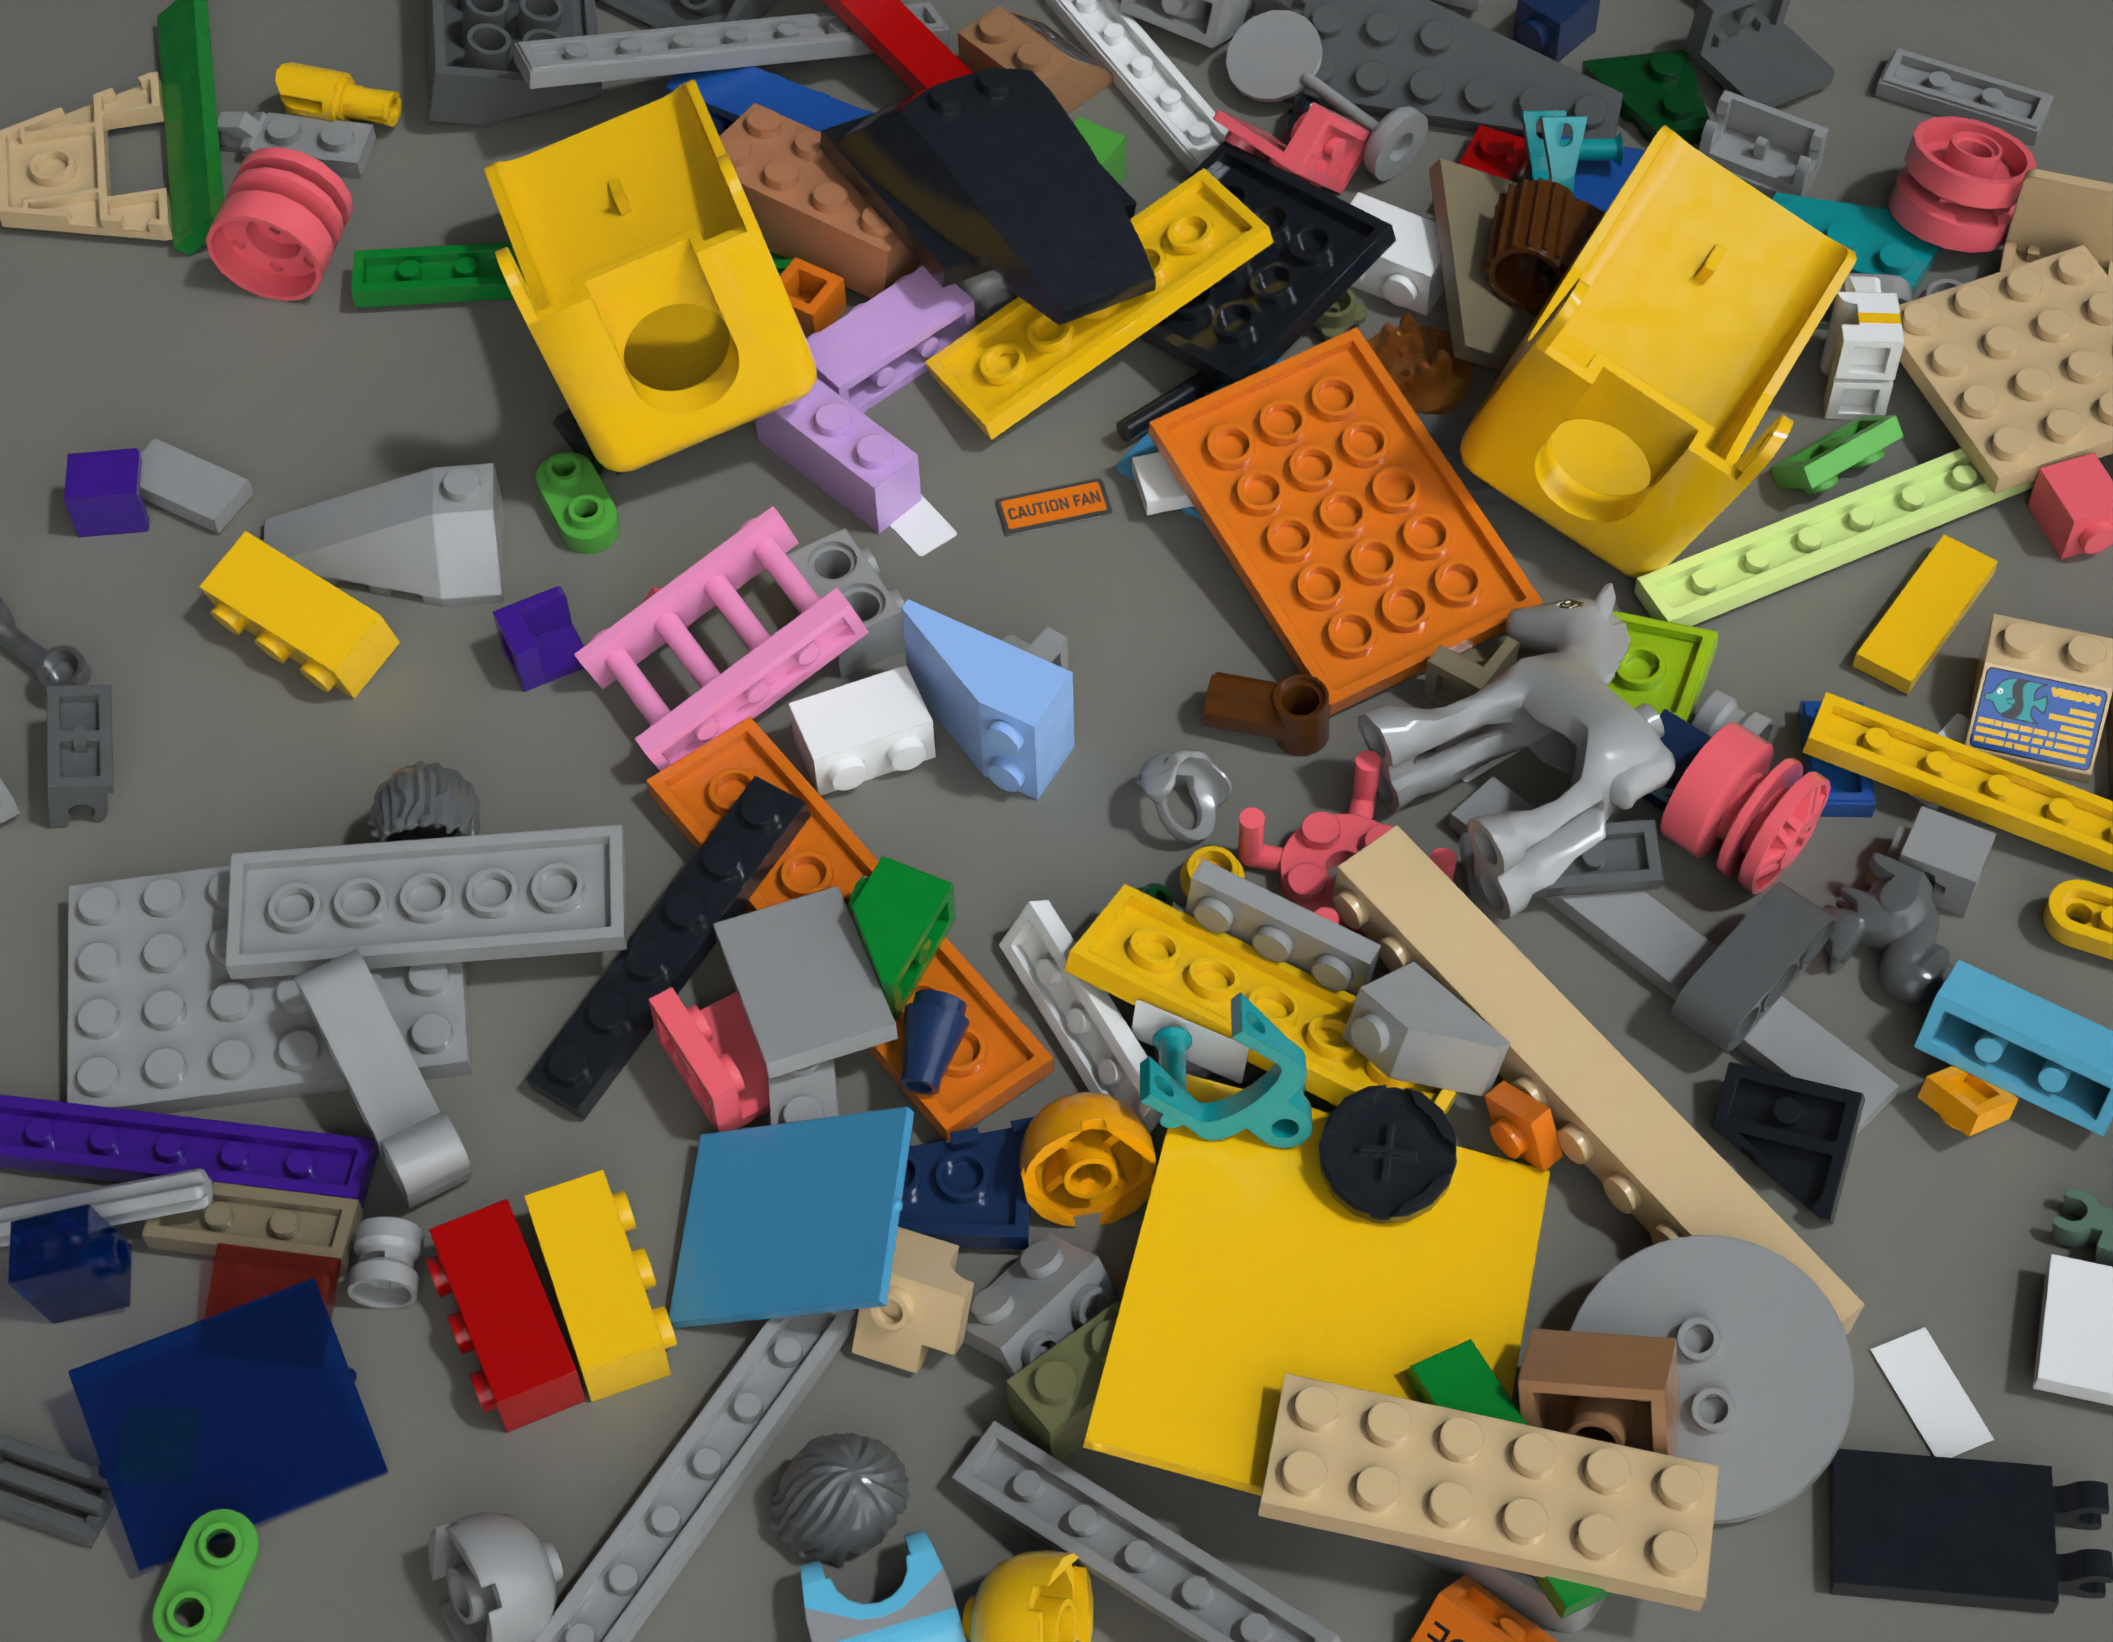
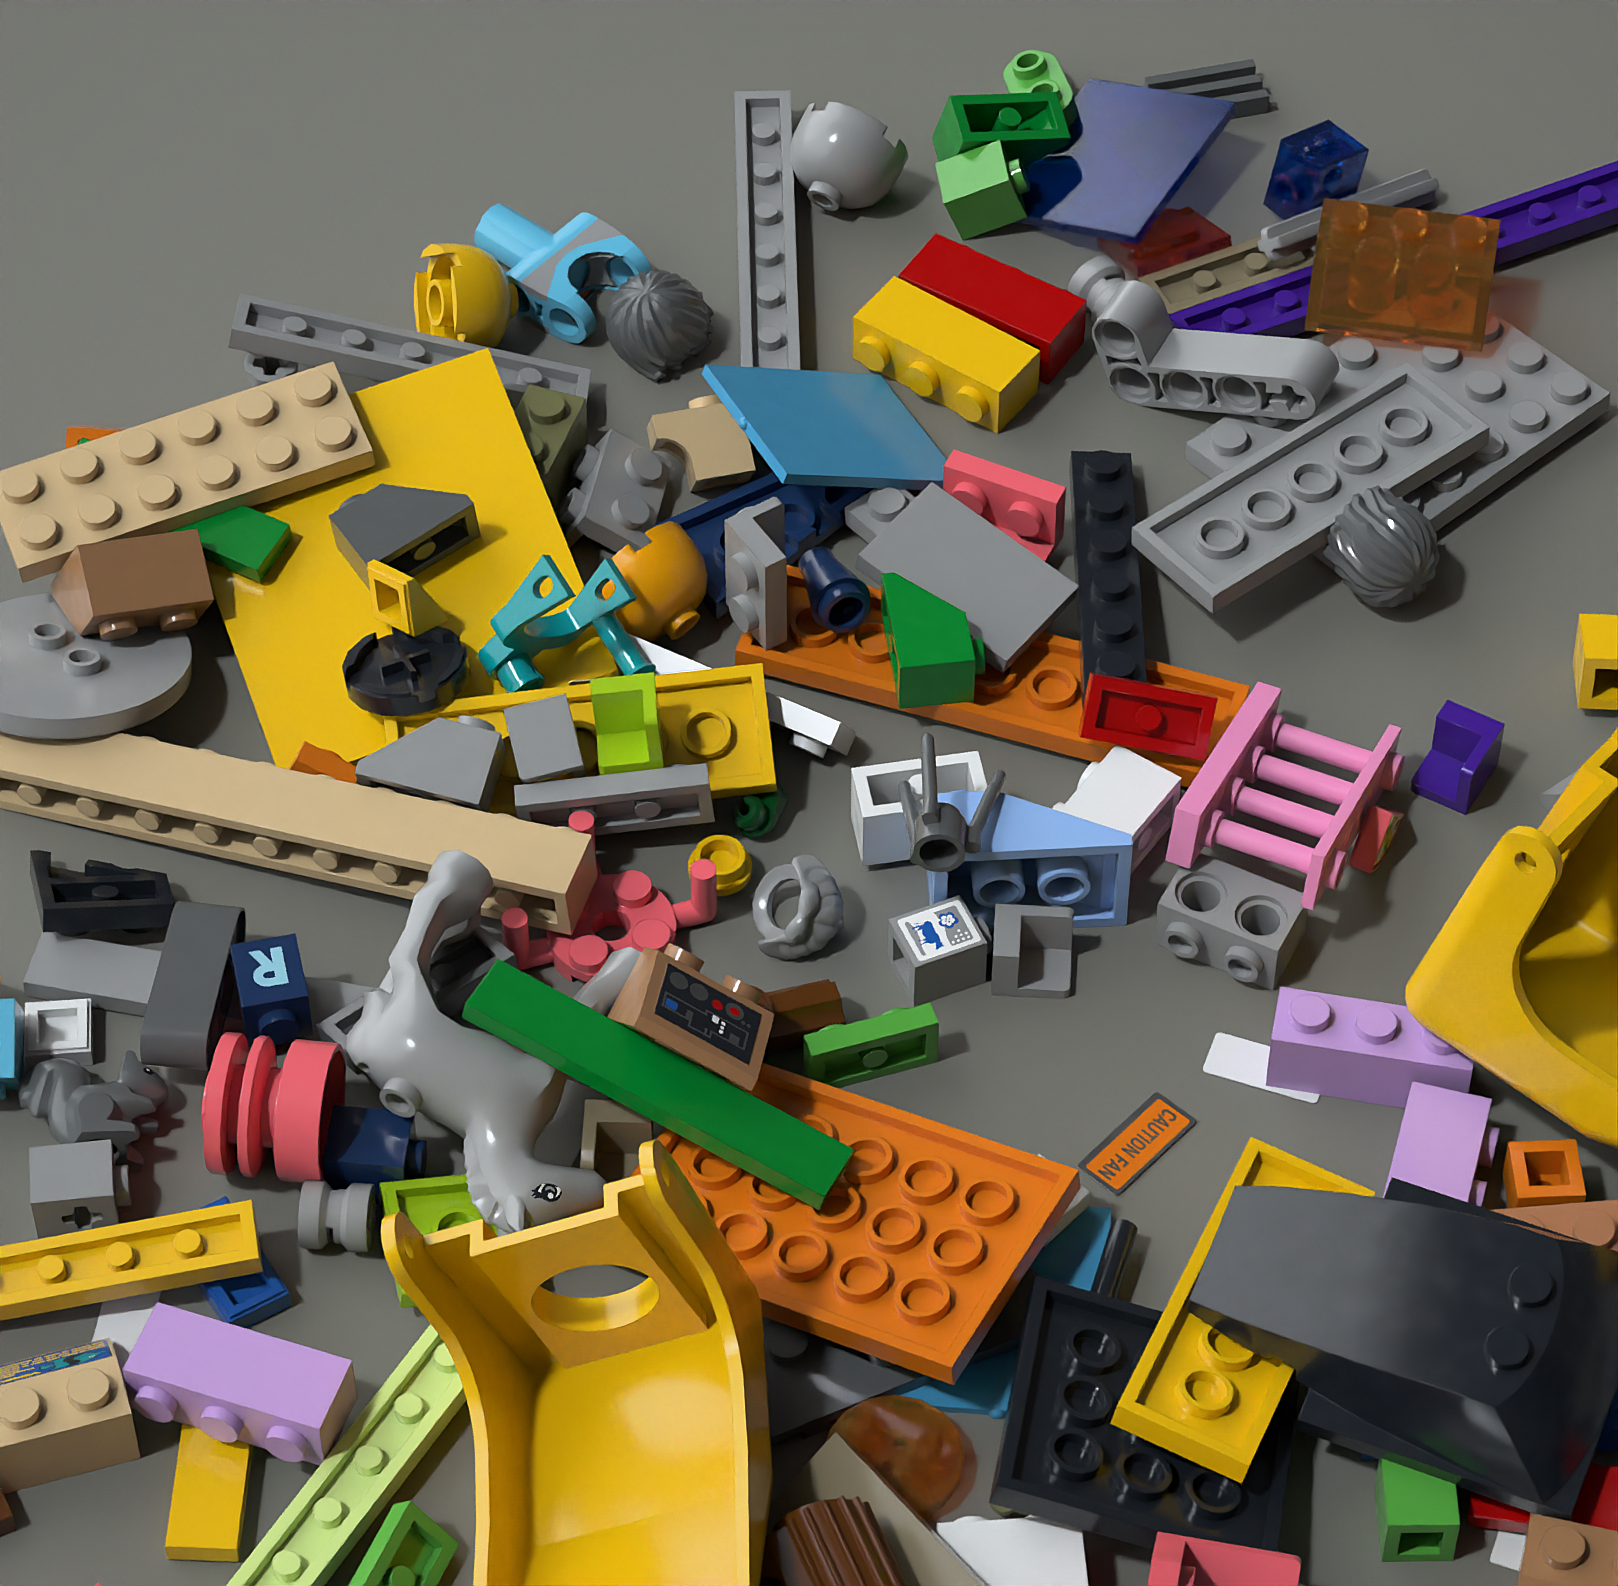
camera: 145 degrees right, 5 degrees down
(127, 1072) = (1402, 275): none -> clear orange slope
(317, 1514) = (1023, 122): none -> green slope
(389, 1457) = (983, 189): none -> bright green brick
(761, 746) = (1147, 716): none -> red plate
(995, 1062) = (758, 571): none -> light grey bracket
(1017, 804) = (877, 804): none -> white brick
(1063, 660) = (940, 832): none -> dark grey plant
(1102, 696) = (938, 950): none -> light grey brick
(1208, 646) = (872, 1047): none -> bright green plate
(1234, 946) = (627, 723): none -> lime panel
(1309, 1279) = (402, 528): none -> dark grey slope
(1315, 988) = (544, 739): none -> light grey panel
(1348, 1204) = (402, 600): none -> yellow slope
(1377, 634) = (695, 1015): none -> medium nougat slope
(1438, 622) = (658, 1084): none -> green tile
(1687, 920) = (272, 989): none -> dark blue brick
(1884, 1033) = (59, 1031): none -> white tile
(1890, 613) = (239, 1384): none -> lavender brick

